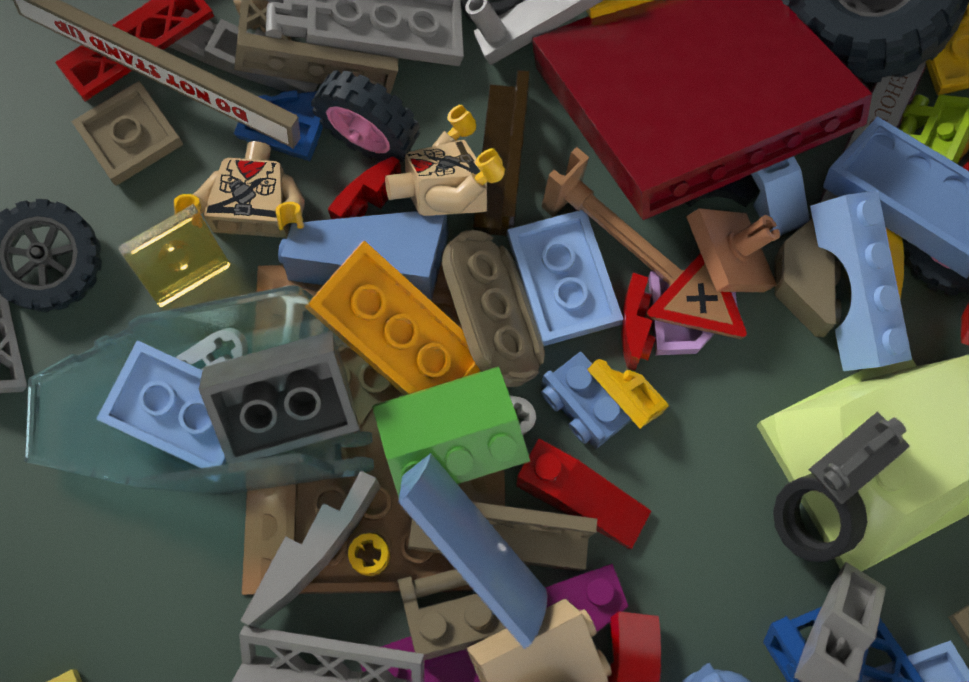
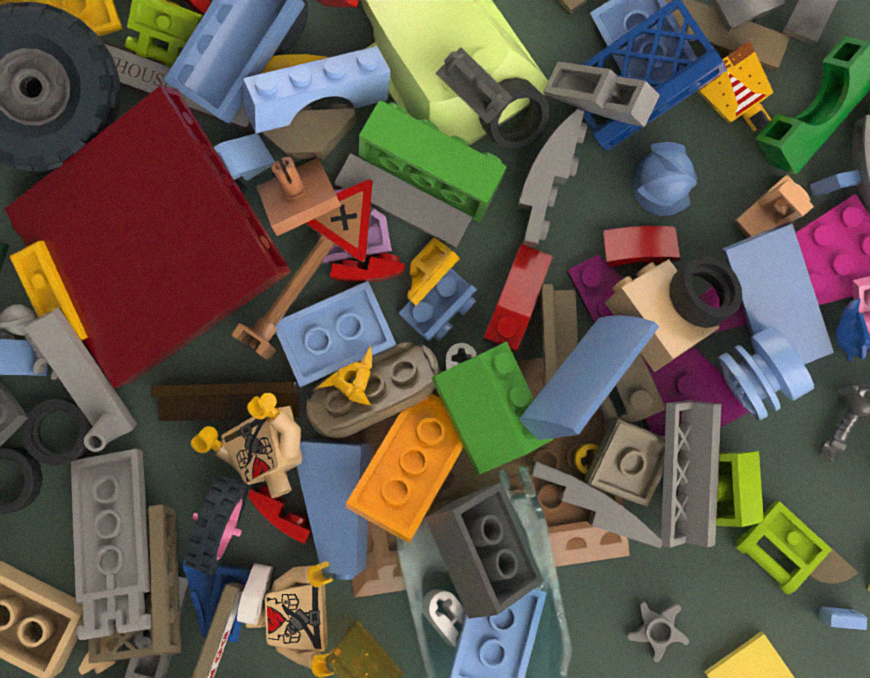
camera: 100 degrees left, 15 degrees up
(142, 616) = (658, 629): none -> light grey animal
(277, 146) = (254, 594): none -> white beam
(356, 598) = (628, 462): none -> dark tan tile
(512, 291) = (354, 390): none -> yellow piece
(714, 380) = (406, 201): none -> light grey tile
(751, 560) = (551, 166): none -> light grey slope
(766, 404) = (430, 159): none -> bright green slope

